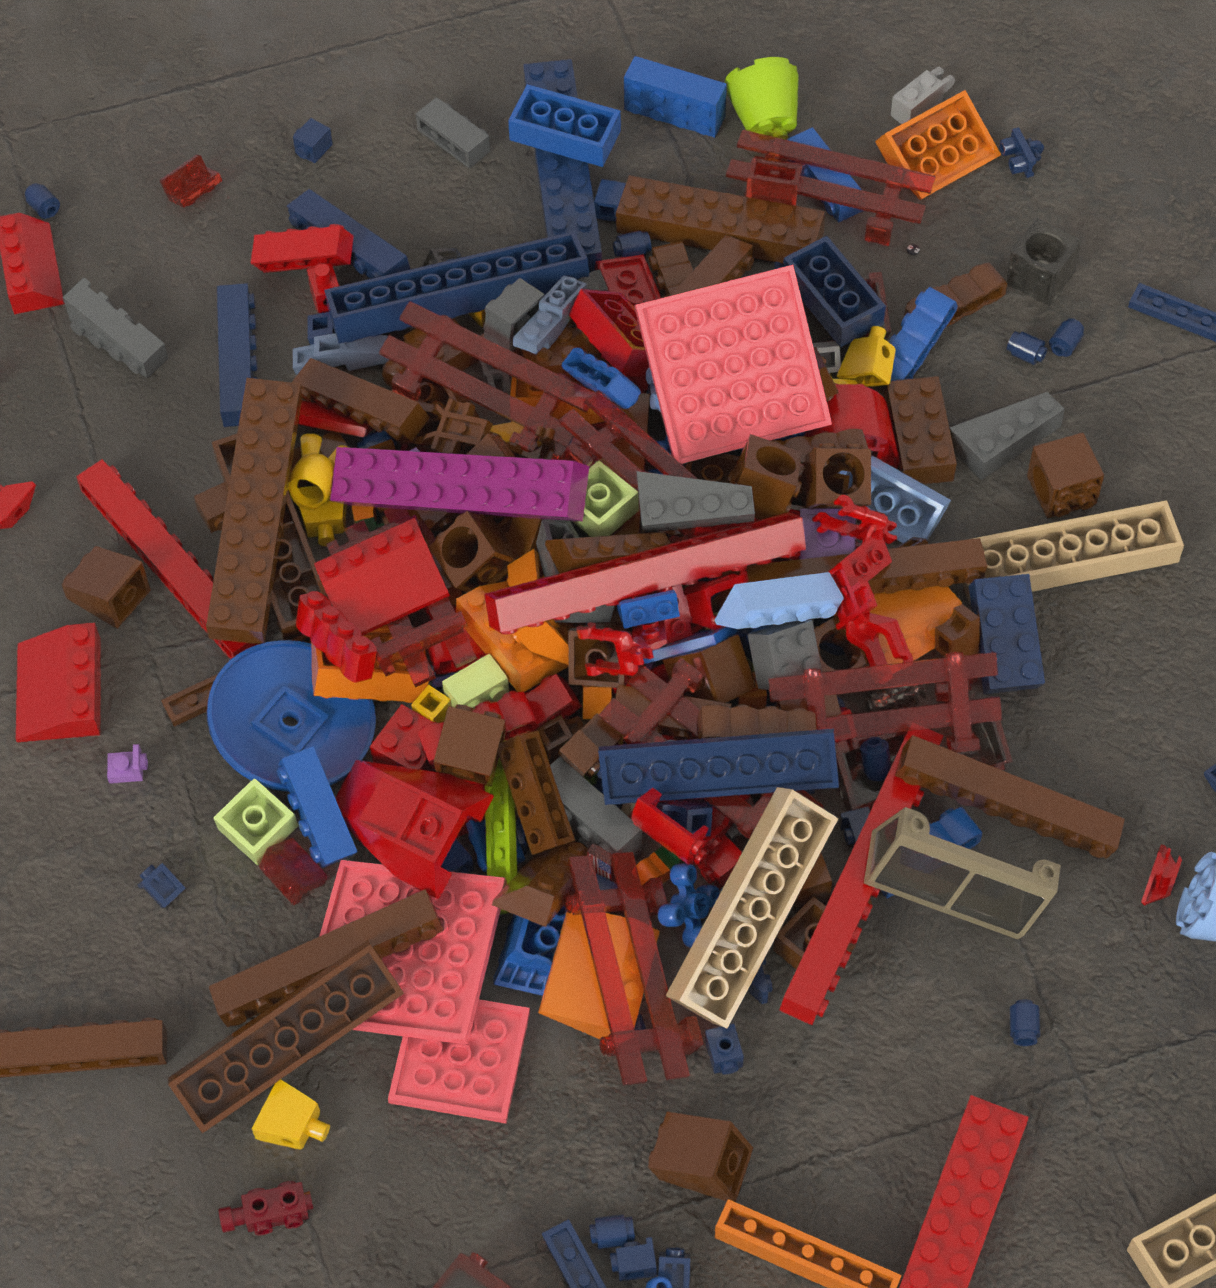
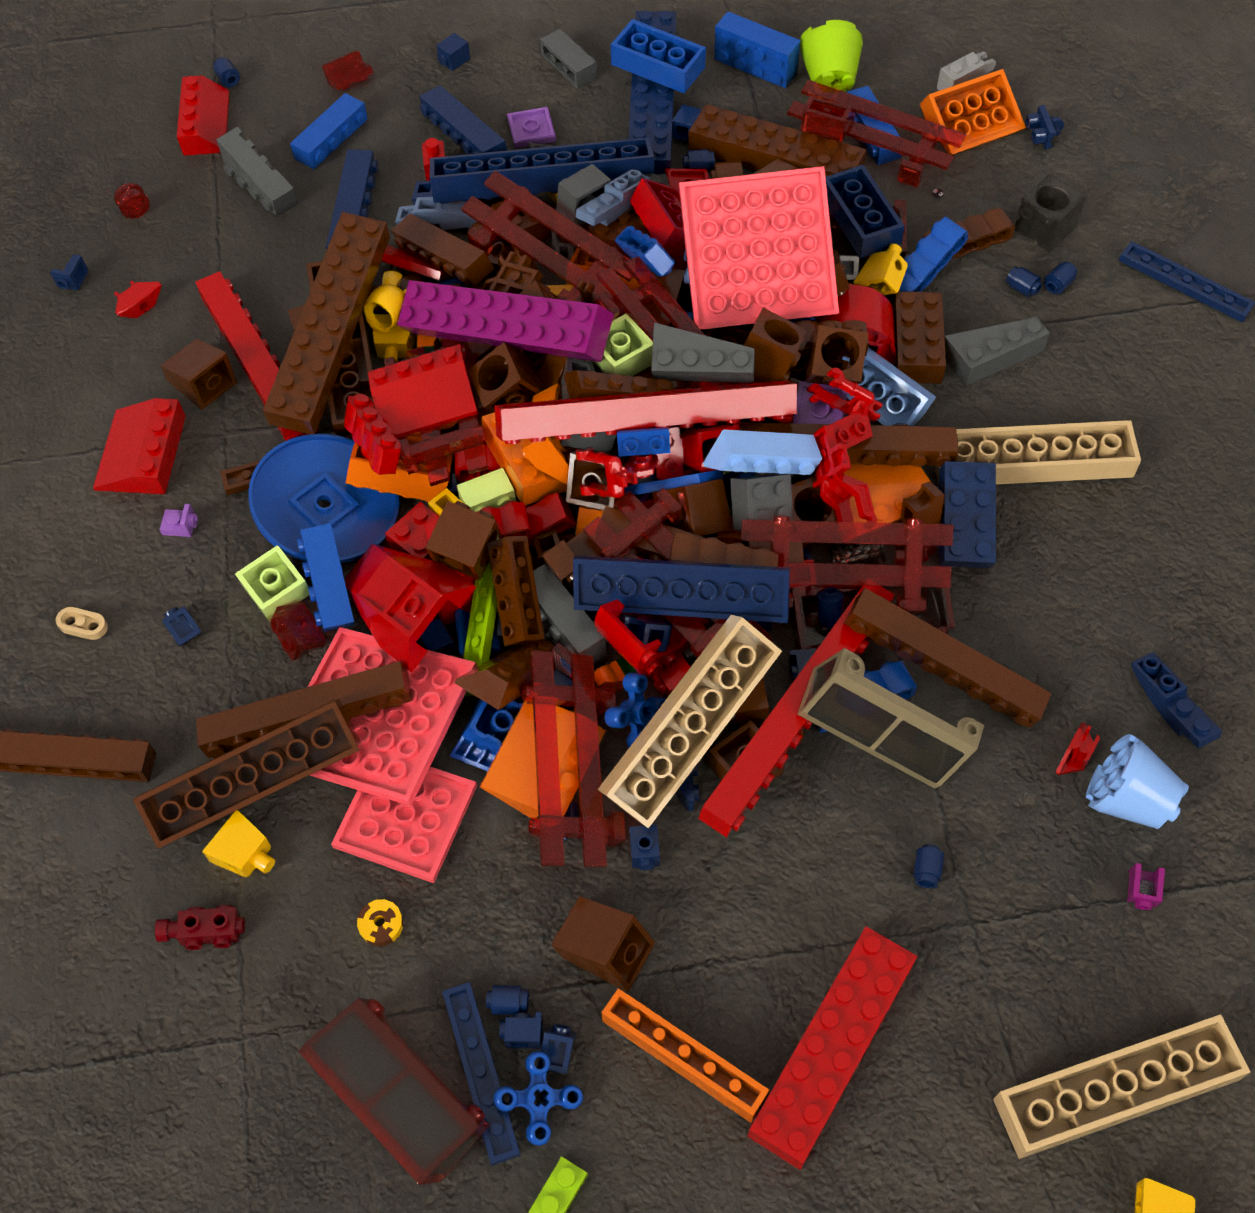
camera: 10 degrees right, 0 degrees up
(48, 898) = (83, 624): none -> tan plate
(186, 262) = (329, 131): none -> blue brick
(302, 248) = (415, 127): red brick -> none
(425, 226) = (531, 126): none -> medium lavender tile
(458, 1187) = (382, 934): none -> yellow piece
(1065, 475) = (1042, 388): reddish brown brick -> none

